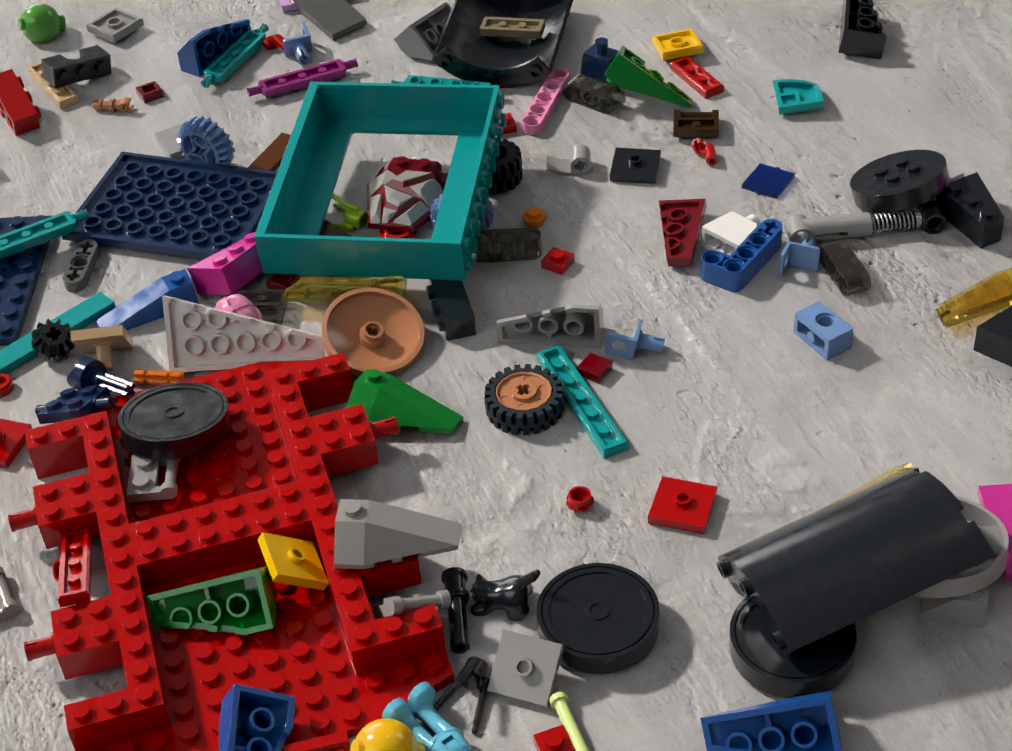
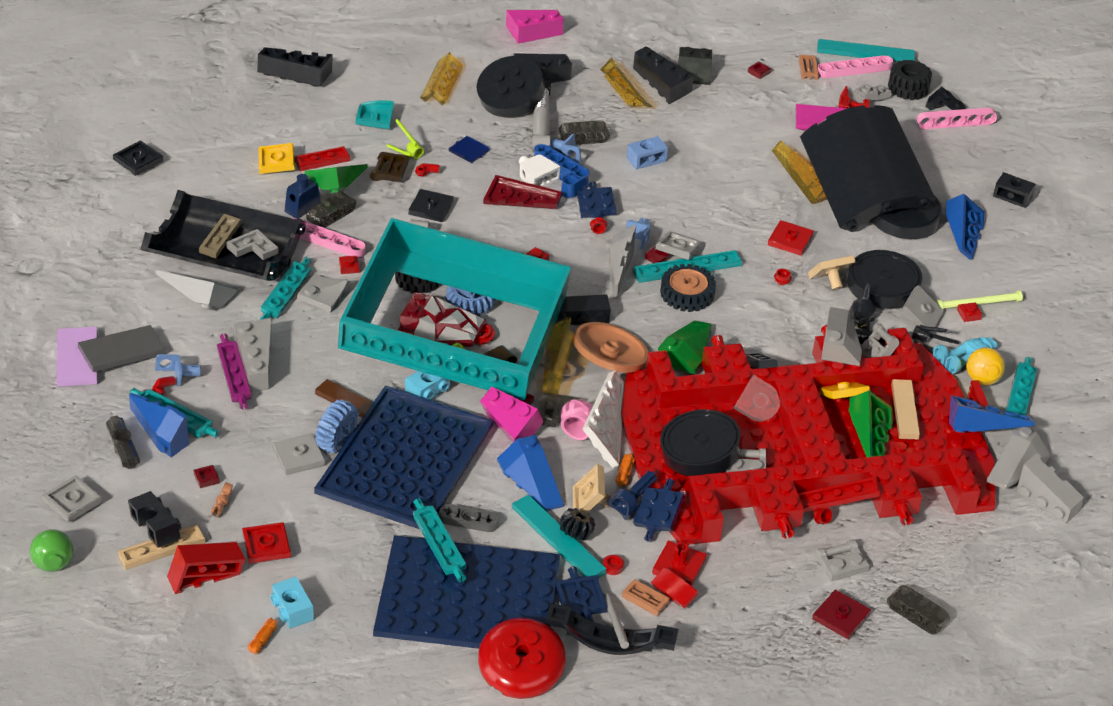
camera: 90 degrees left, 0 degrees up
(49, 138) = (266, 542): none -> red plate
(179, 37) = (122, 442): none -> clear smoke piece
(267, 468) = (758, 400): none -> clear tile
(275, 647) = (905, 409): none -> tan tile
(295, 84) = (254, 347): none -> light grey wedge
(358, 473) = (761, 360): none -> black tile
(507, 50) = (255, 242): none -> light grey plate
(594, 542) = (832, 269): none -> tan tile
(616, 382) = (678, 245): none -> light grey plate
(639, 303) = (598, 229): none -> red plate
(691, 298) = (596, 201): none -> dark blue plate
(740, 133) = (413, 148): none -> lime plant
(904, 129) = (440, 74): none -> clear yellow fence

